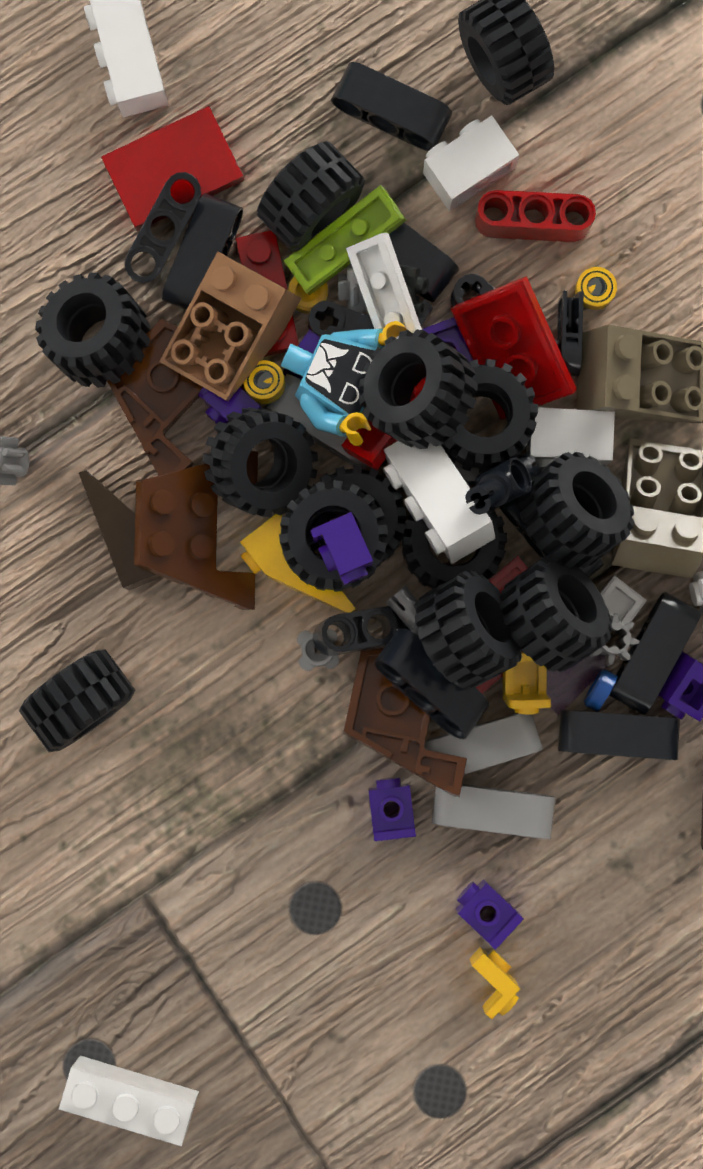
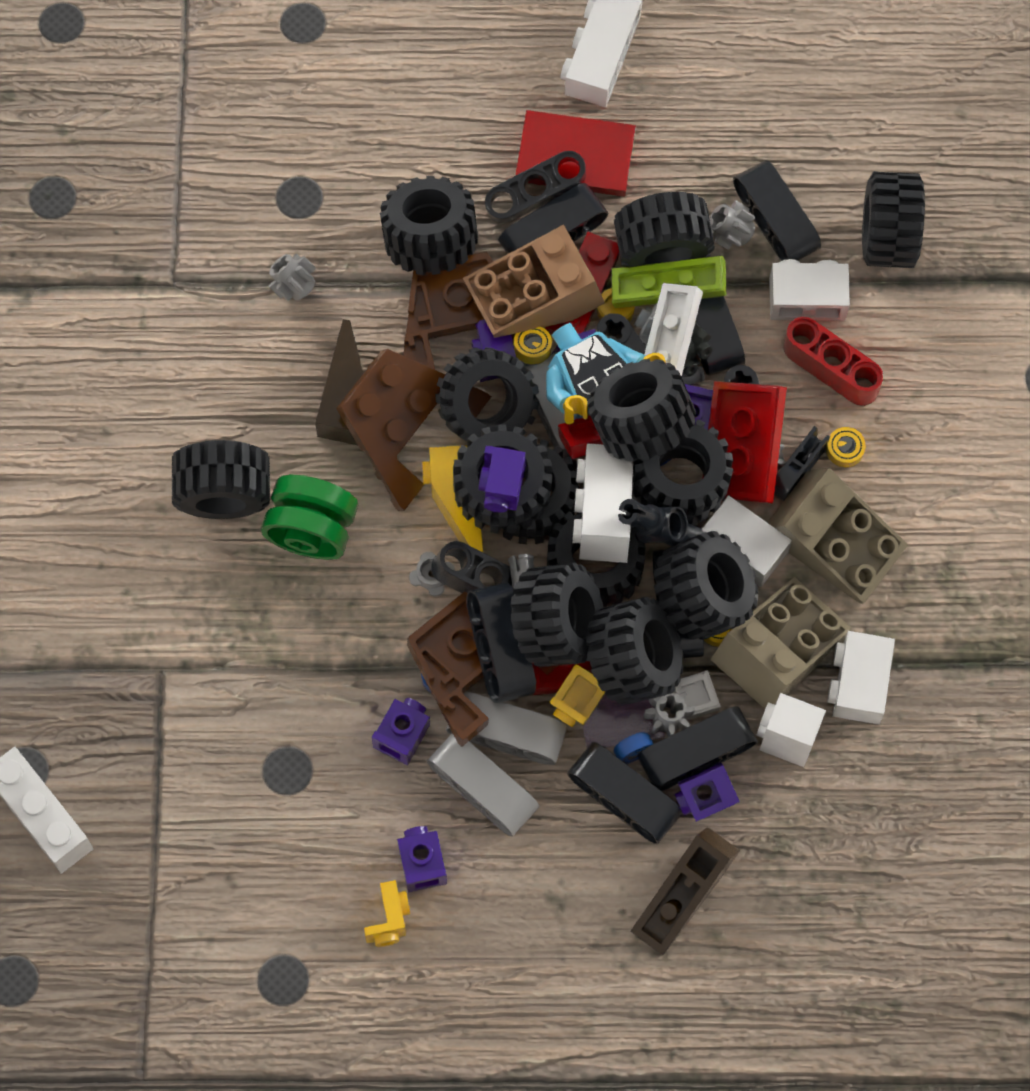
camera: 30 degrees right, 15 degrees down
(180, 680) = (309, 517): none -> green wheel
(361, 145) = (732, 225): none -> light grey gear

